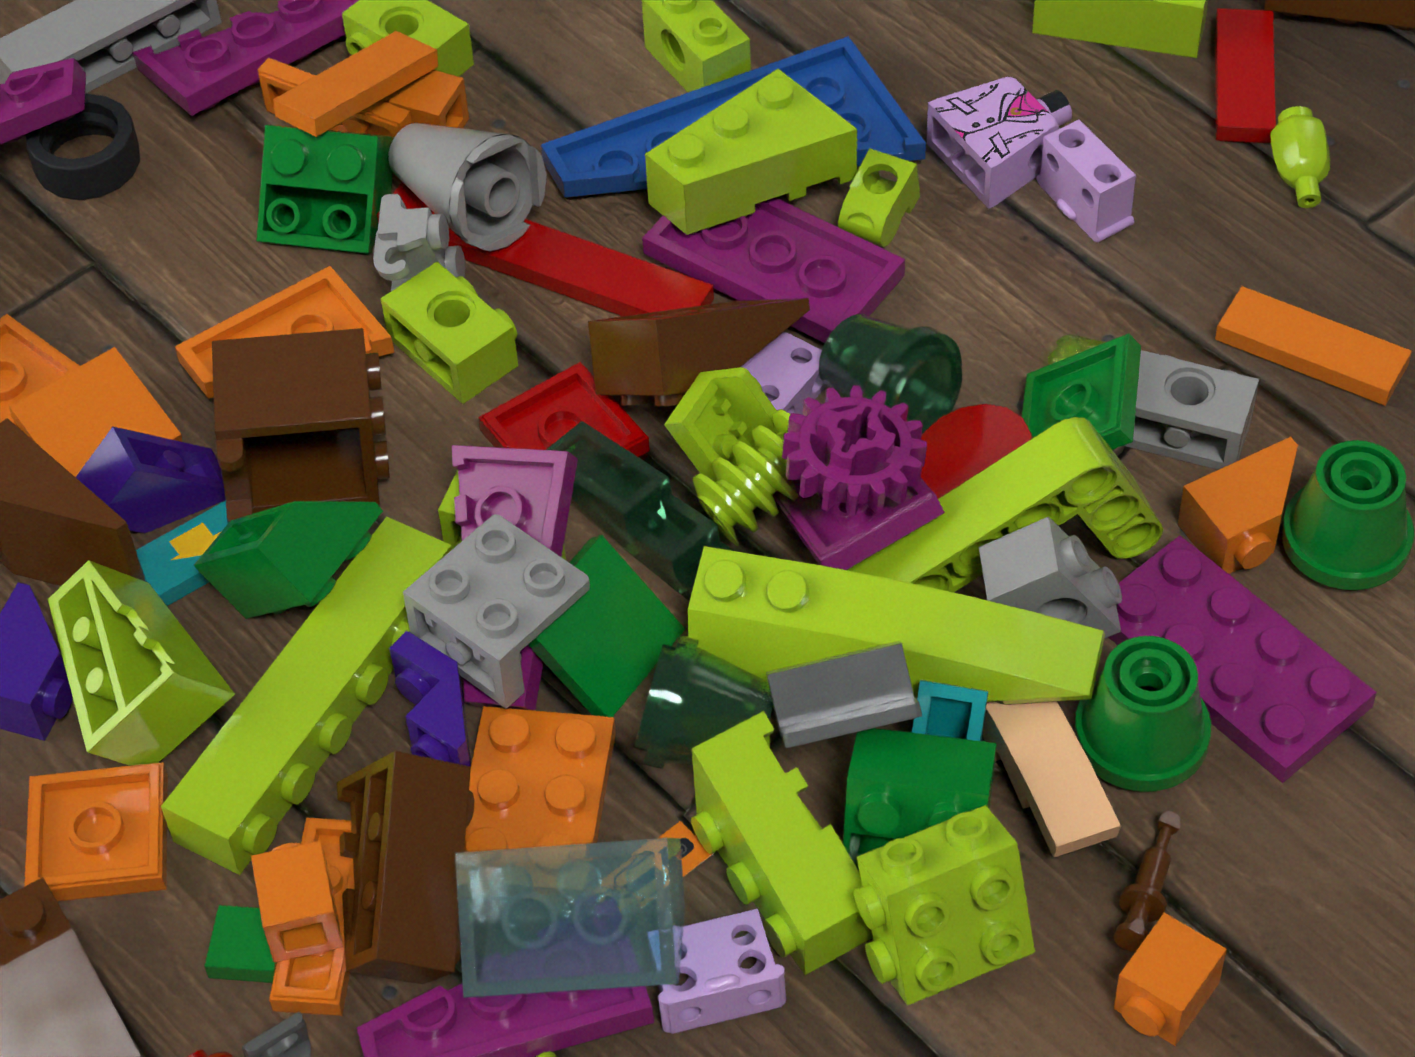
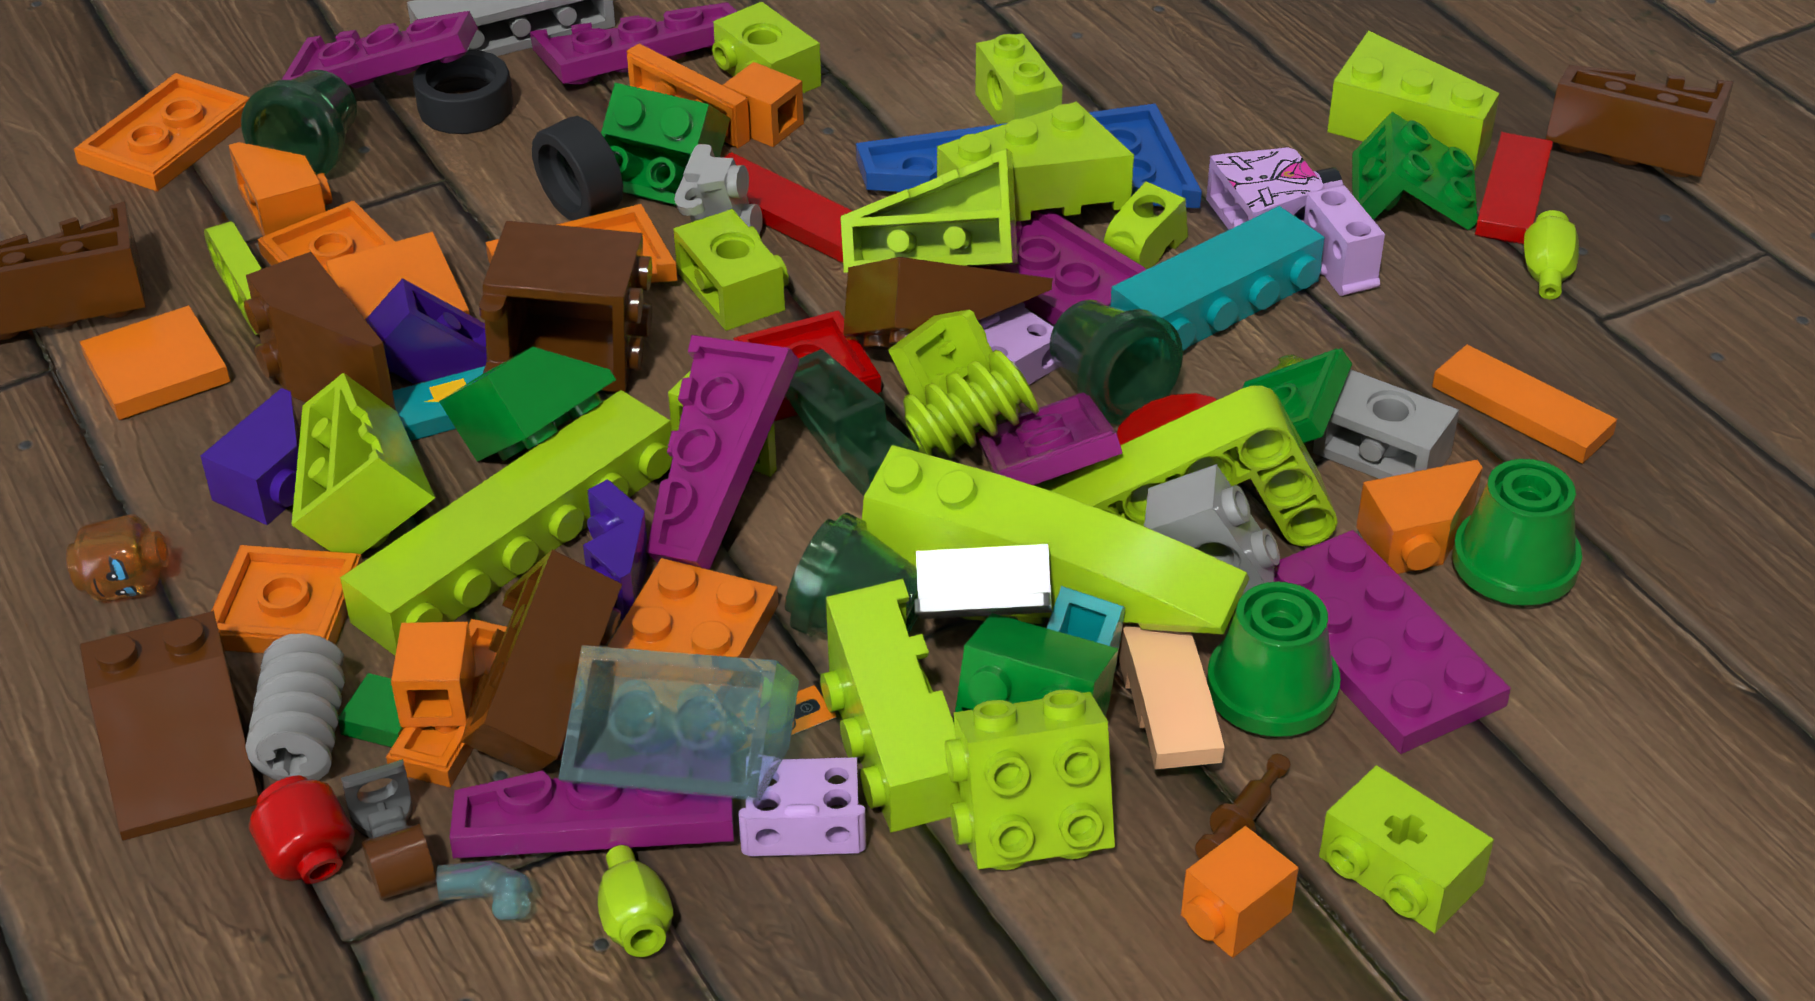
camera: 10 degrees right, 10 degrees down
(161, 966) = (296, 707): none -> light grey piece
(250, 238) = (577, 168): none -> black tyre
(355, 83) = (703, 65): orange tile -> none
(473, 178) = (788, 152): light grey cone -> none
(491, 603) = (684, 458): light grey bracket -> none
(609, 634) = (777, 504): green tile -> none
(669, 252) = (952, 219): none -> lime wedge
(854, 450) = (1050, 385): magenta gear -> none
(975, 251) = (1227, 276): none -> teal brick
(1132, 69) = (1407, 158): none -> green bracket
(1316, 898) = (1405, 848): none -> lime brick

